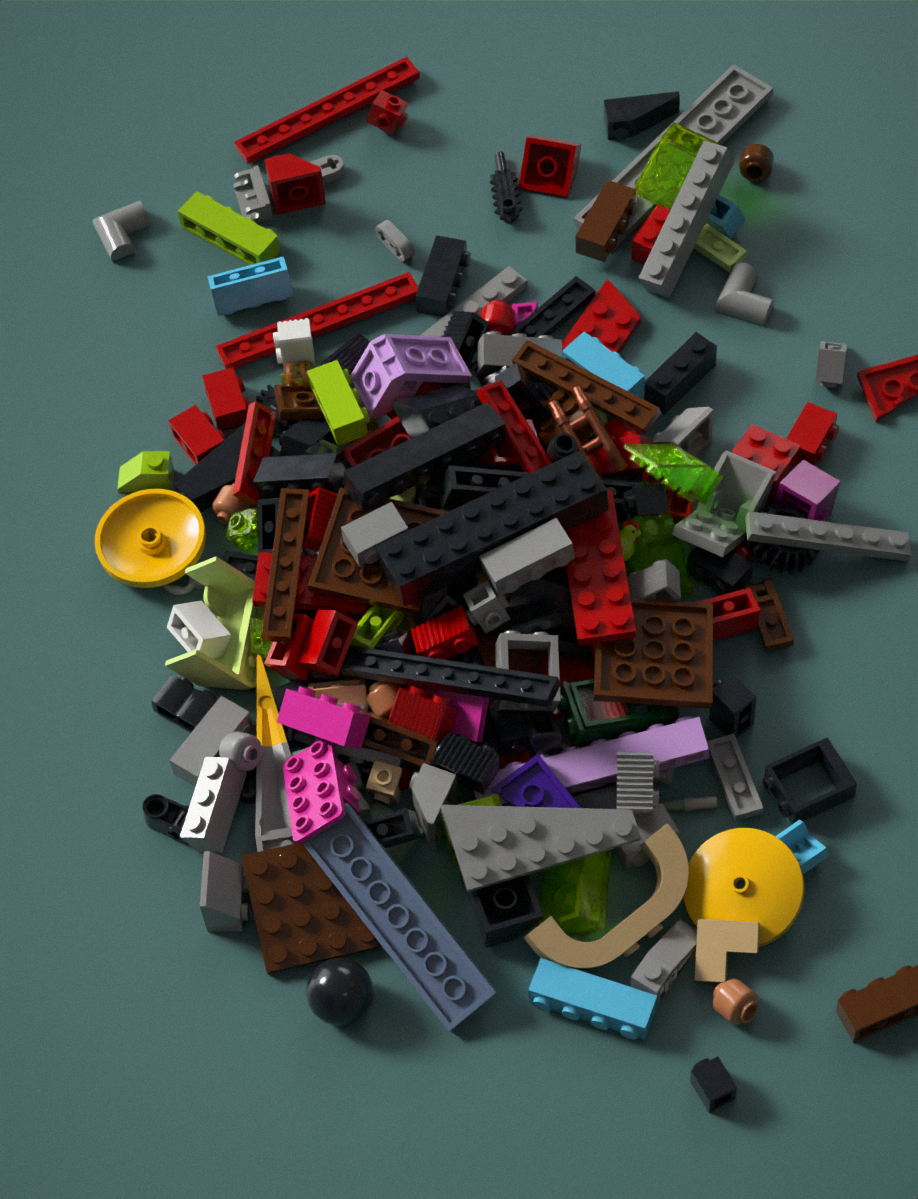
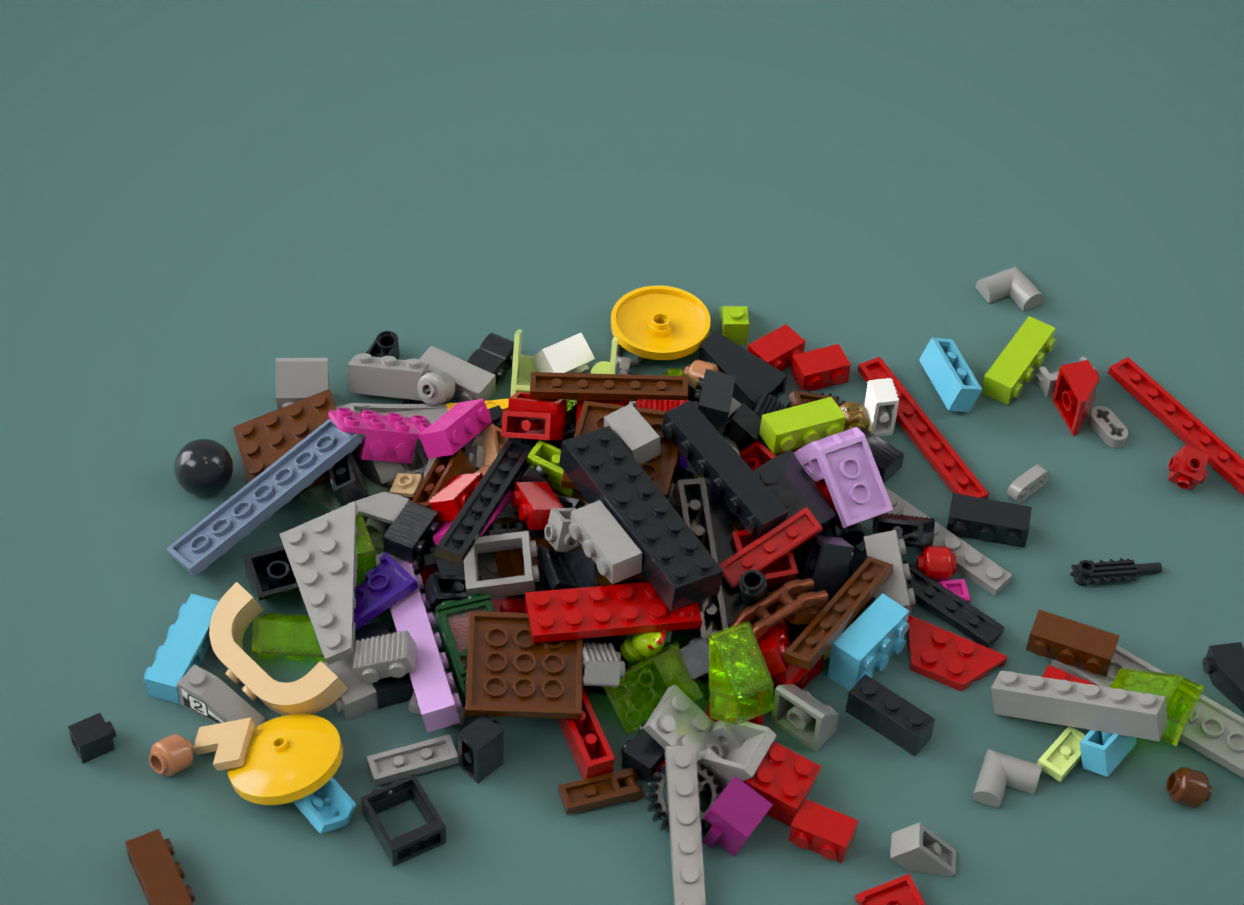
camera: 80 degrees right, 10 degrees down
(254, 447) = (754, 376): red plate -> none
(549, 165) = (1151, 604): red slope -> none
(691, 803) = (387, 727): light grey piece -> none

